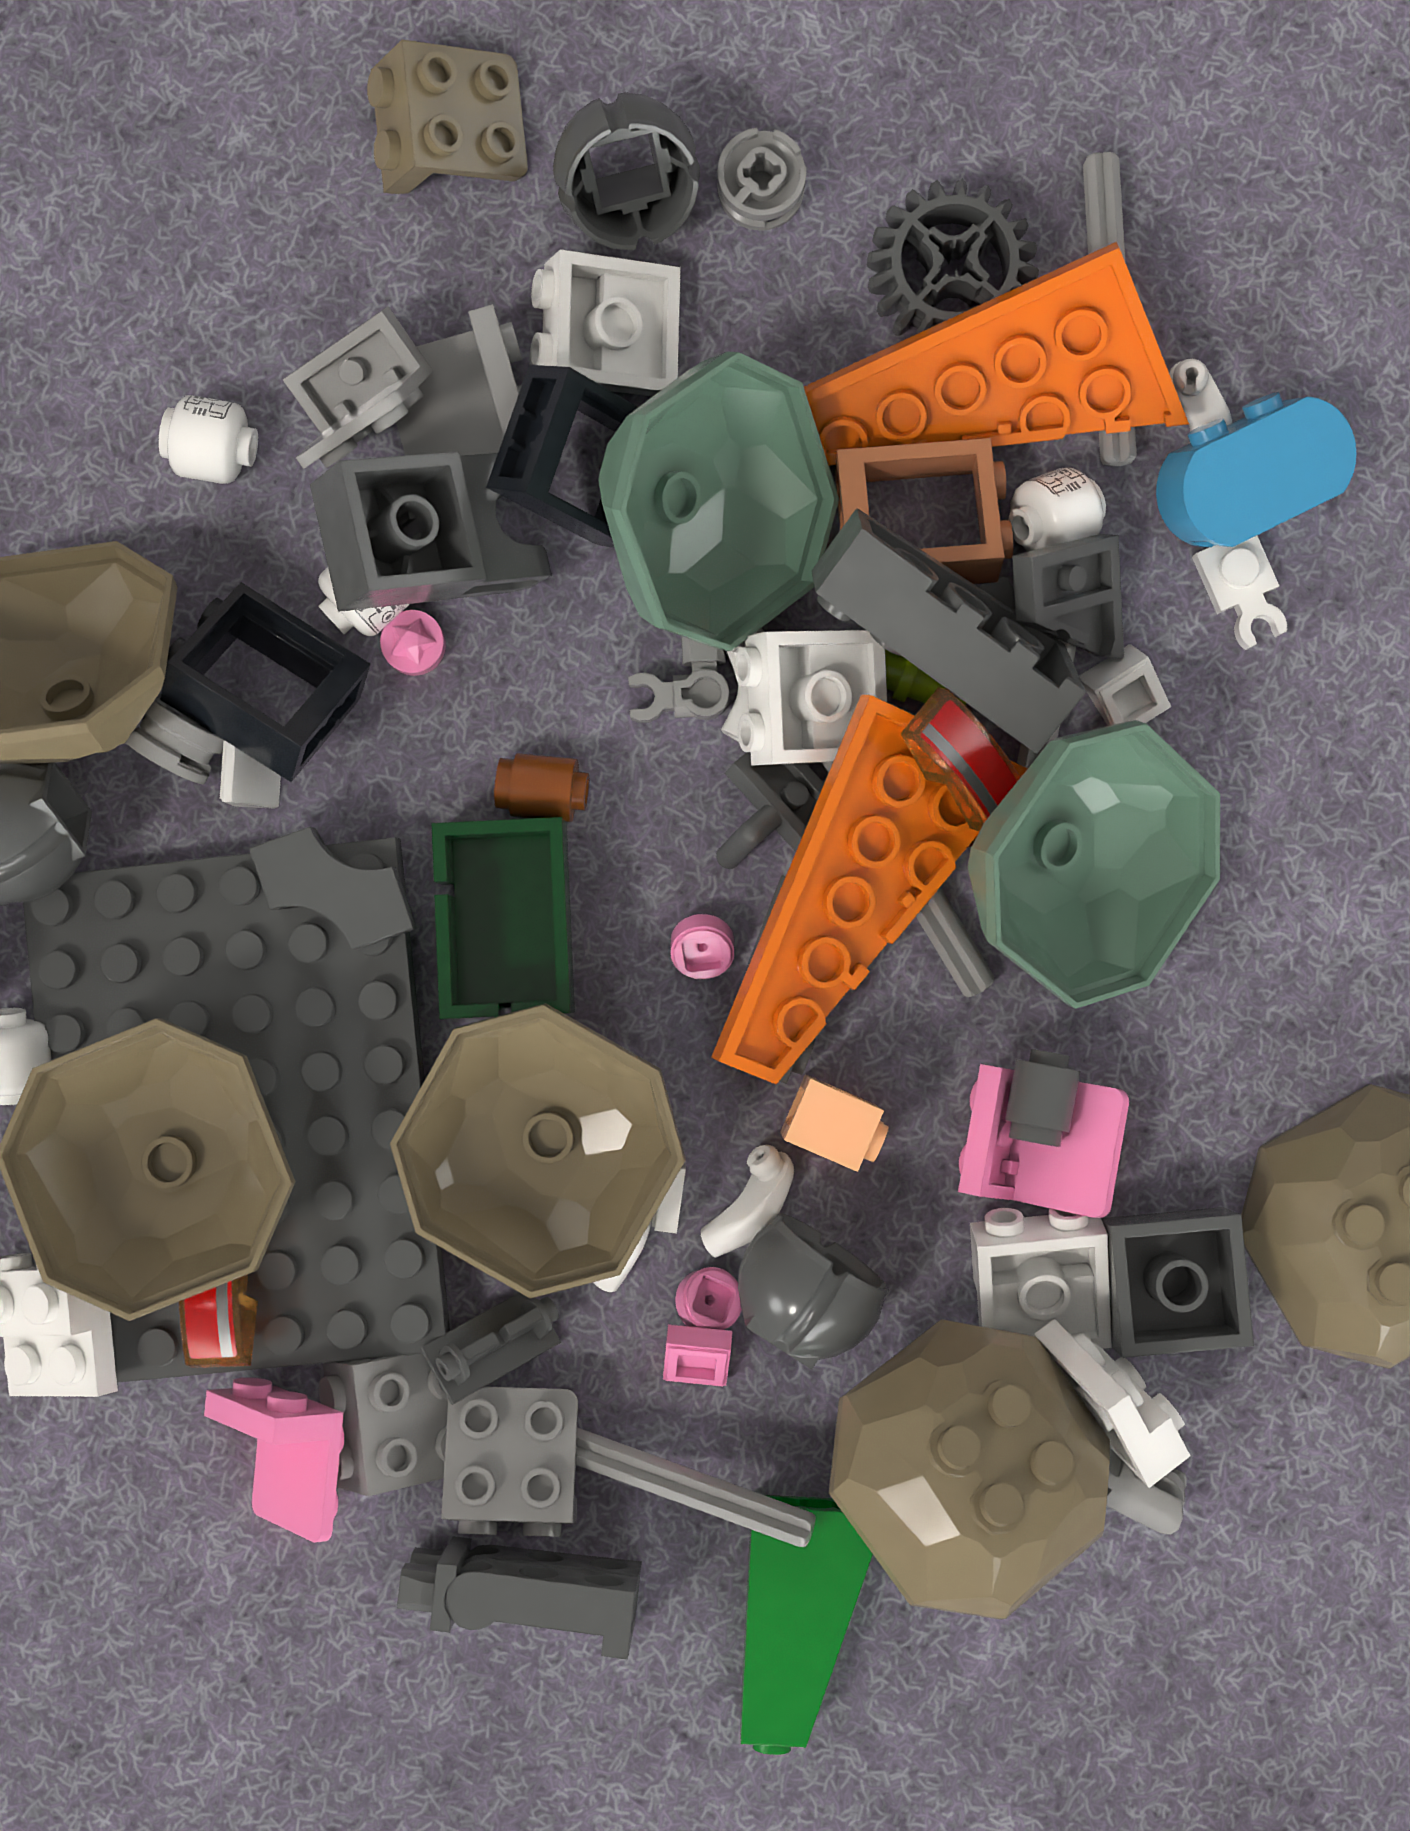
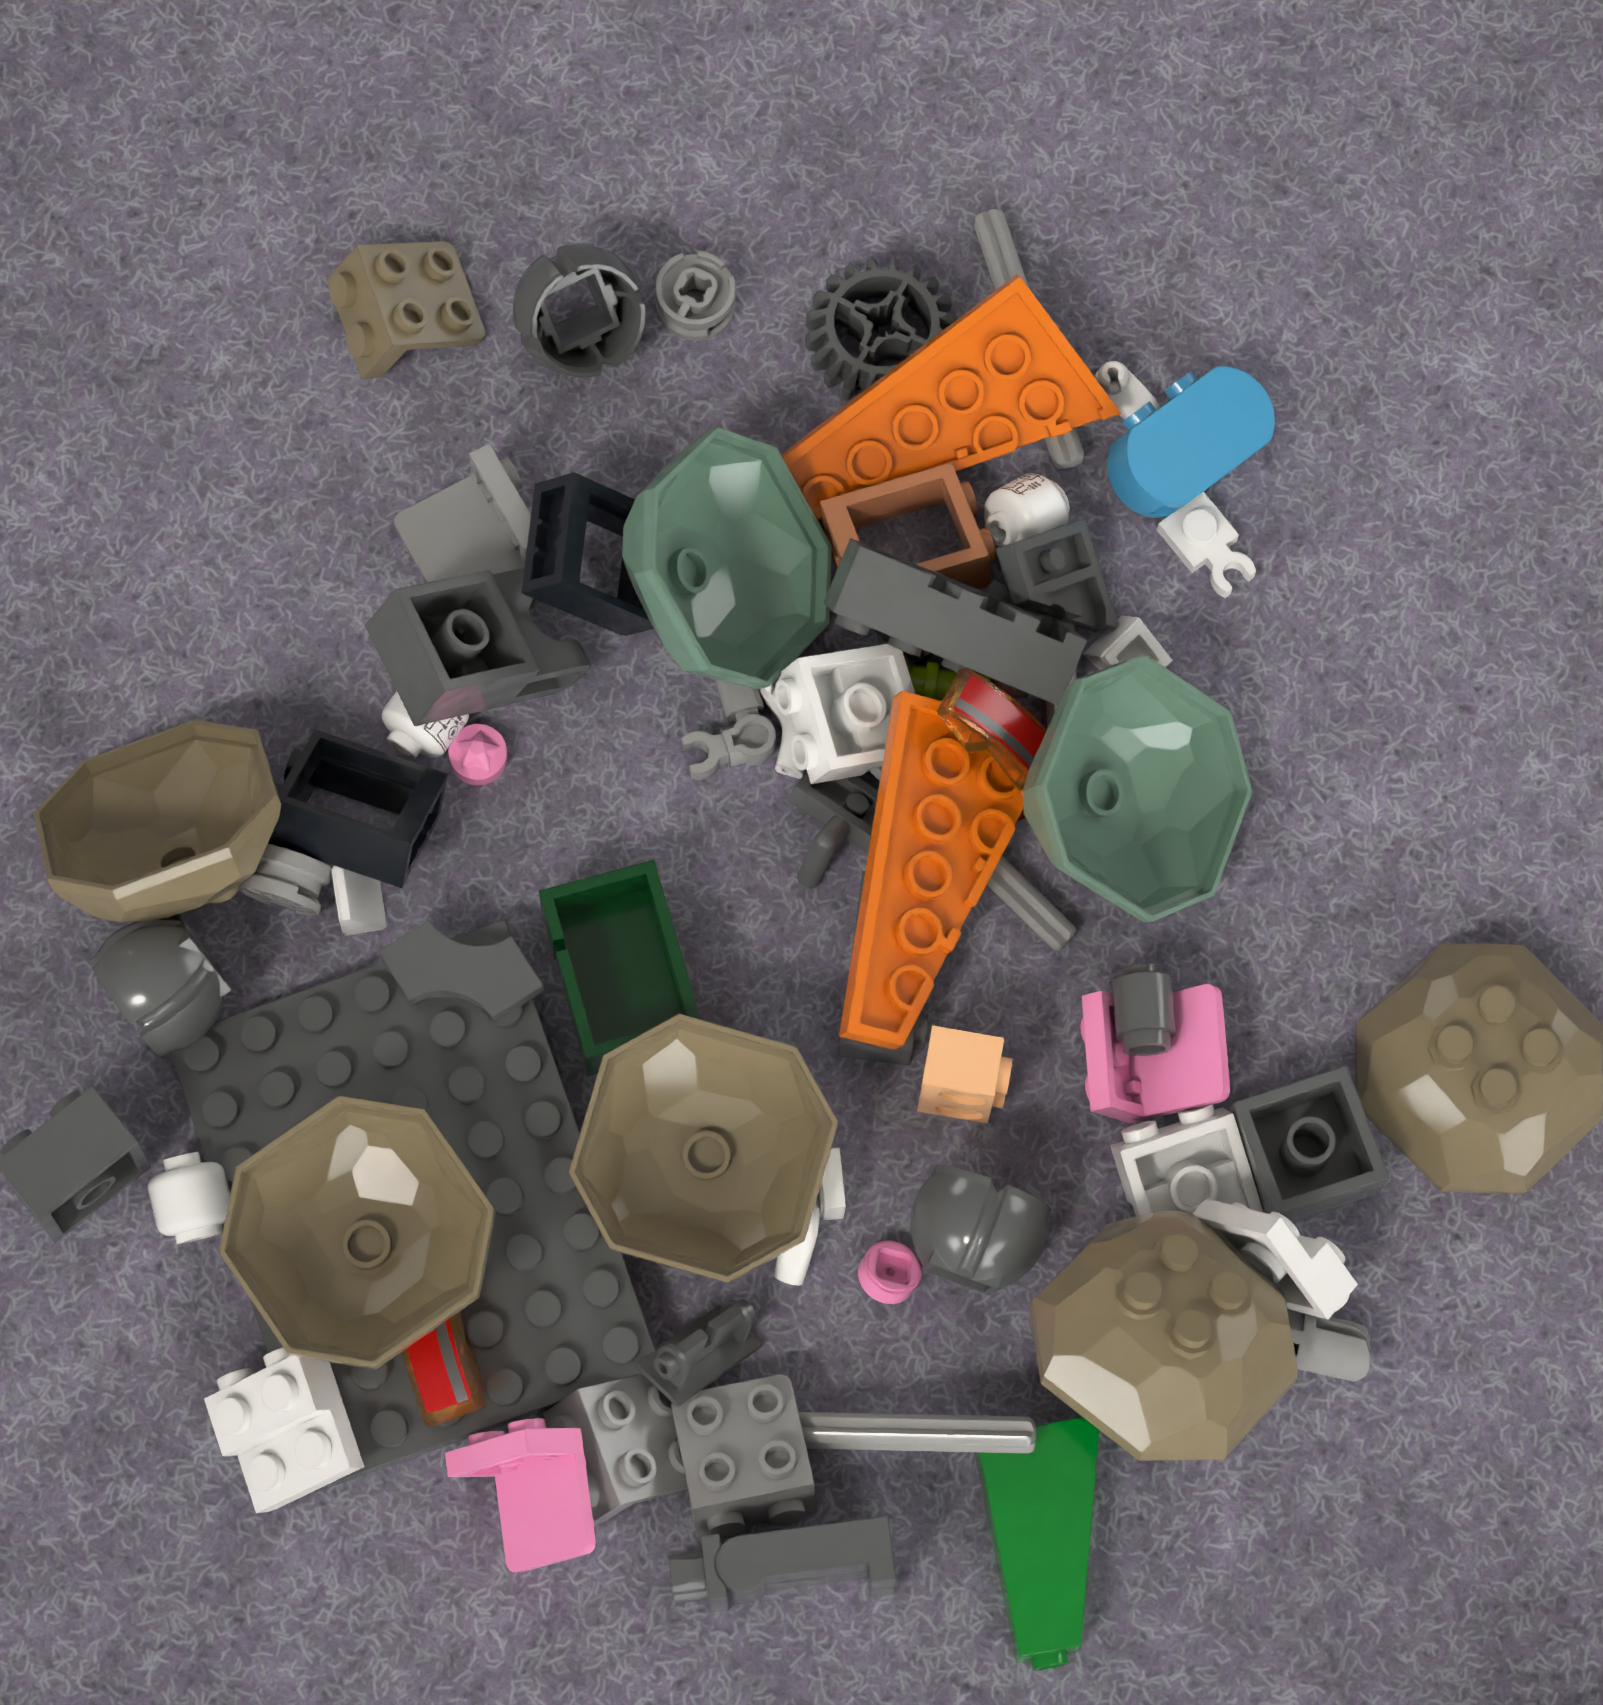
camera: 20 degrees left, 15 degrees down
(207, 439) = (253, 618): white head -> none
(358, 386) = (379, 537): light grey bracket -> none
(541, 786) = (624, 845): dark orange brick -> none
(609, 320) = (591, 432): white plate -> none
(697, 1355) = (891, 1321): bright pink tile -> none
(702, 946) = (805, 958): bright pink tile -> none
(755, 1206) = (913, 1168): white arm -> none

